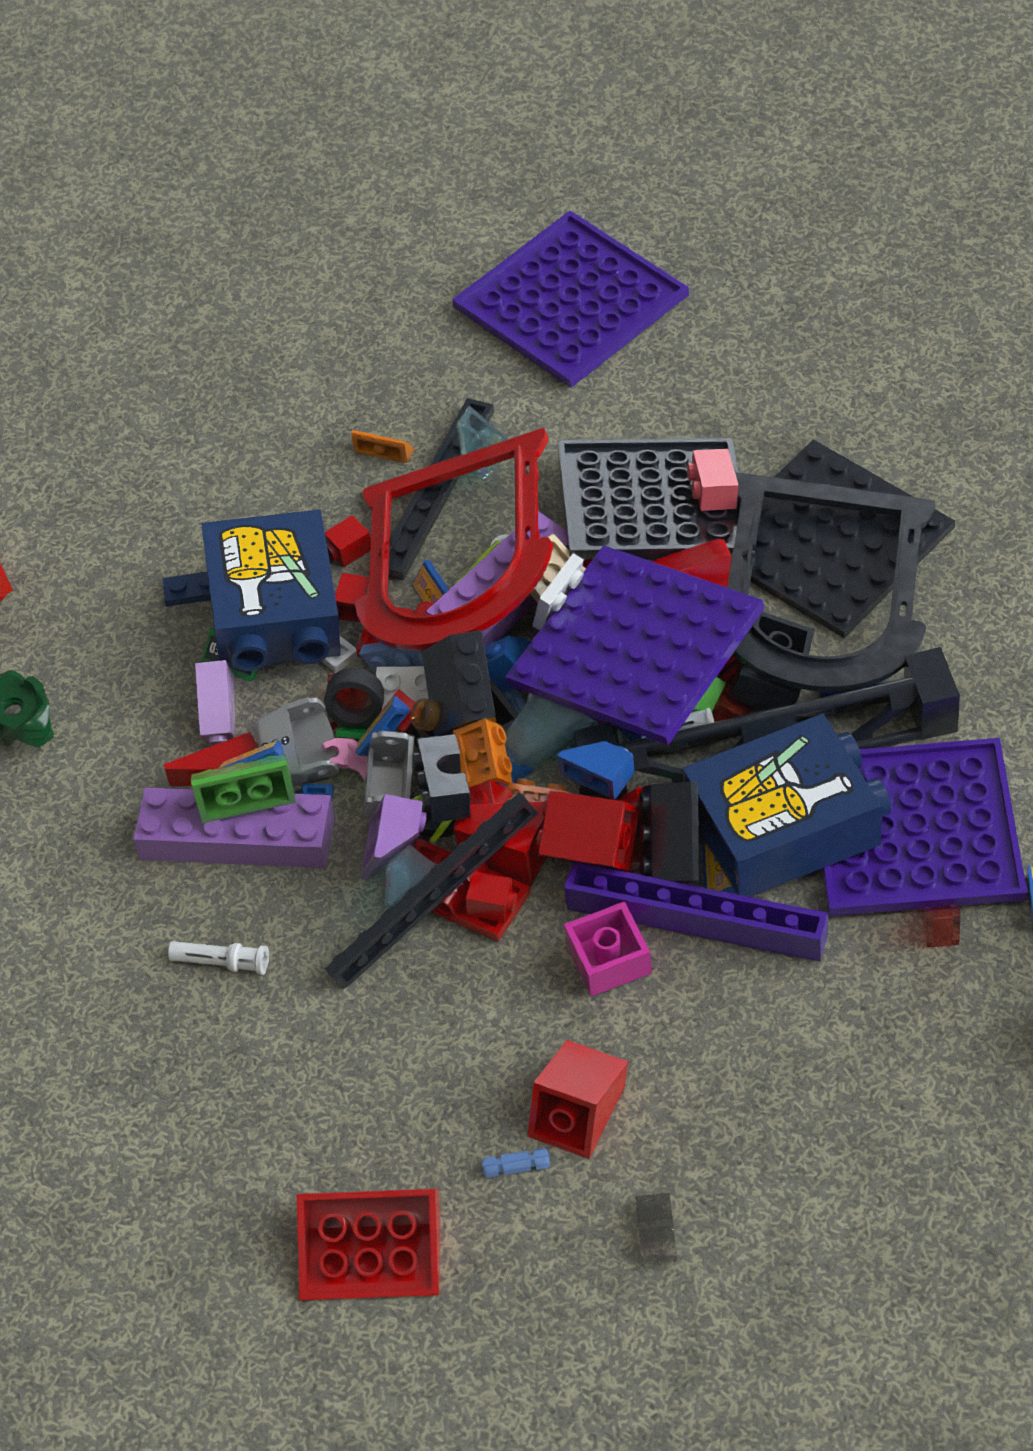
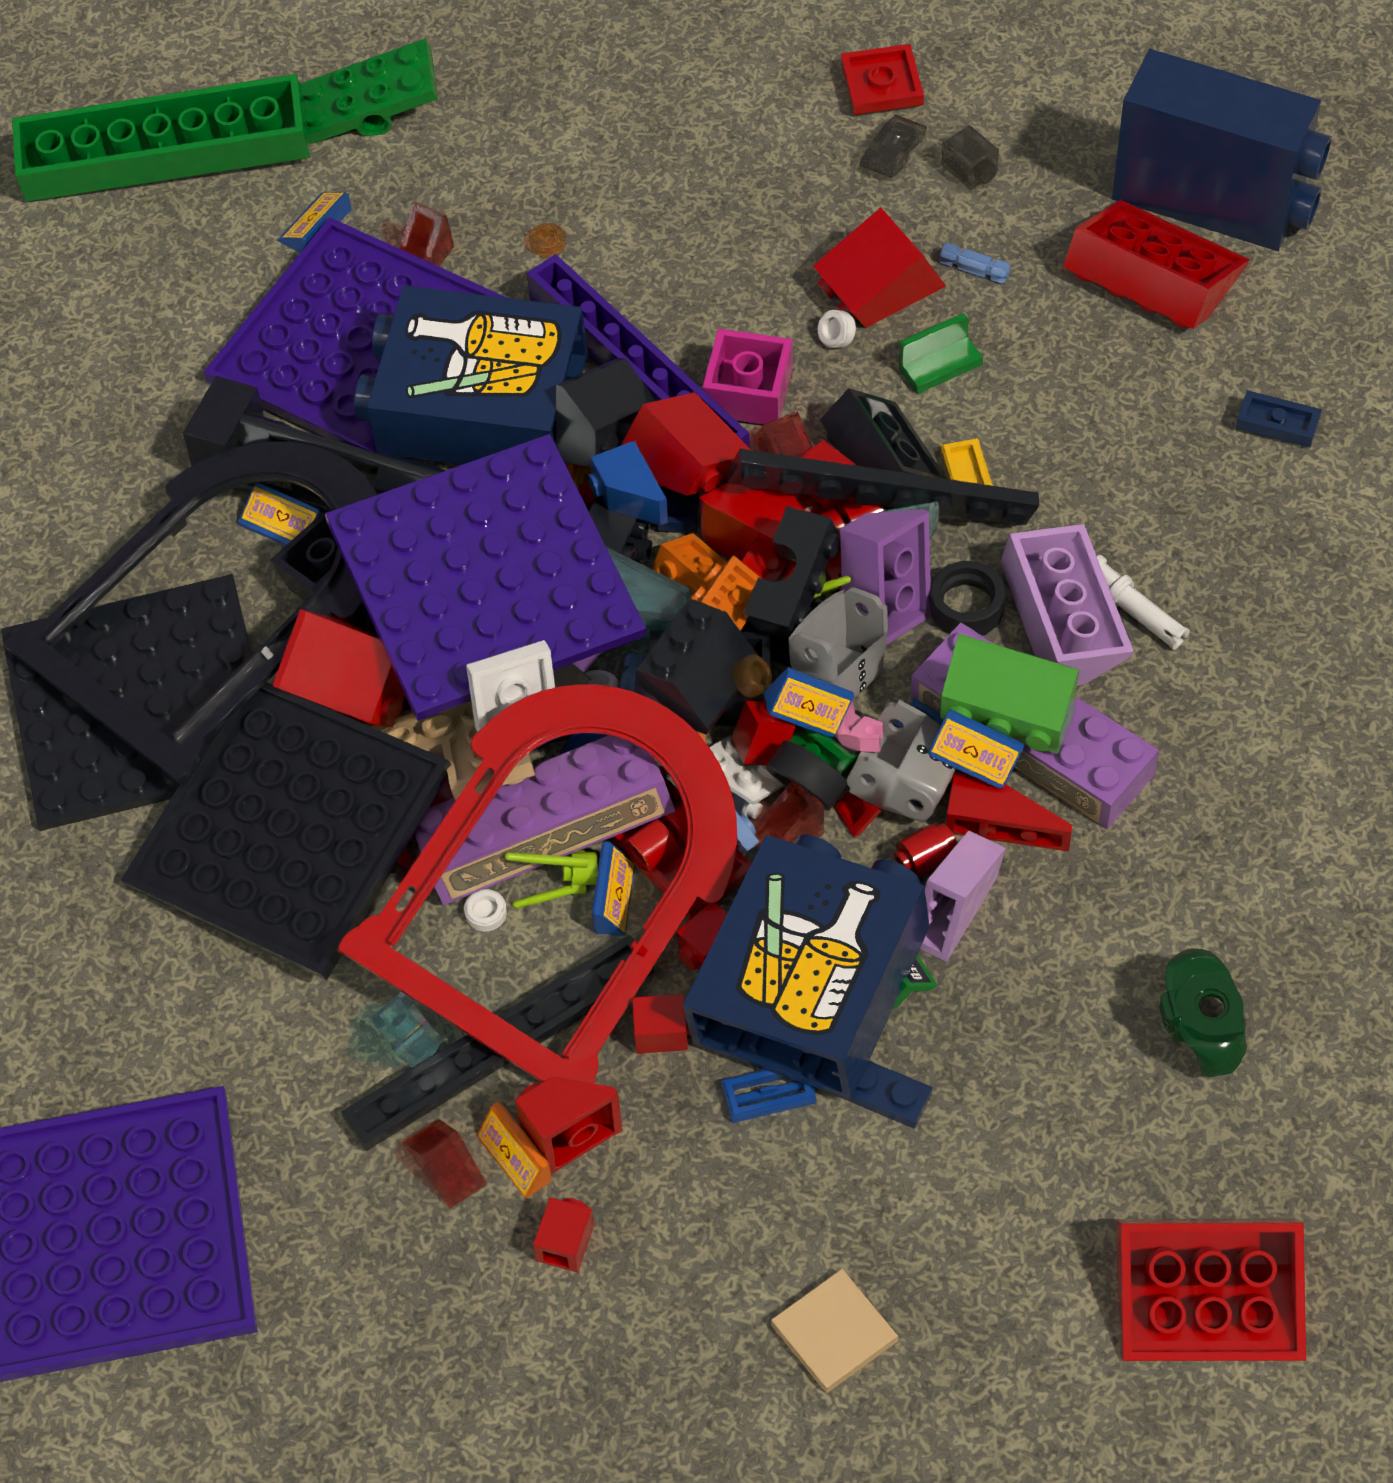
camera: 150 degrees left, 5 degrees up
(142, 467) = (834, 1330): none -> tan tile
(194, 1159) = (1278, 418): none -> dark blue plate
(253, 710) = (925, 848): none -> red brick
(262, 910) = (1065, 600): none -> lavender slope
(321, 421) = (564, 1234): none -> red brick
(338, 911) = (970, 574): none -> black tyre
(354, 1311) = (1219, 150): none -> dark blue brick
(358, 455) = (568, 1117): none -> red slope
(402, 988) = (965, 462): none -> yellow tile
(421, 420) = (445, 1162): none -> clear red slope
(470, 962) = (877, 435): none -> black slope
(484, 1062) = (938, 354): none -> panel
(542, 919) = (783, 436): none -> clear red slope
(578, 1034) = (836, 329): none -> white tile
(581, 1247) = (970, 157): none -> clear smoke brick
(713, 479) = (208, 781): coral brick -> none
(713, 1288) = (882, 79): none -> red plate
(859, 990) = (547, 240): none -> clear orange tile

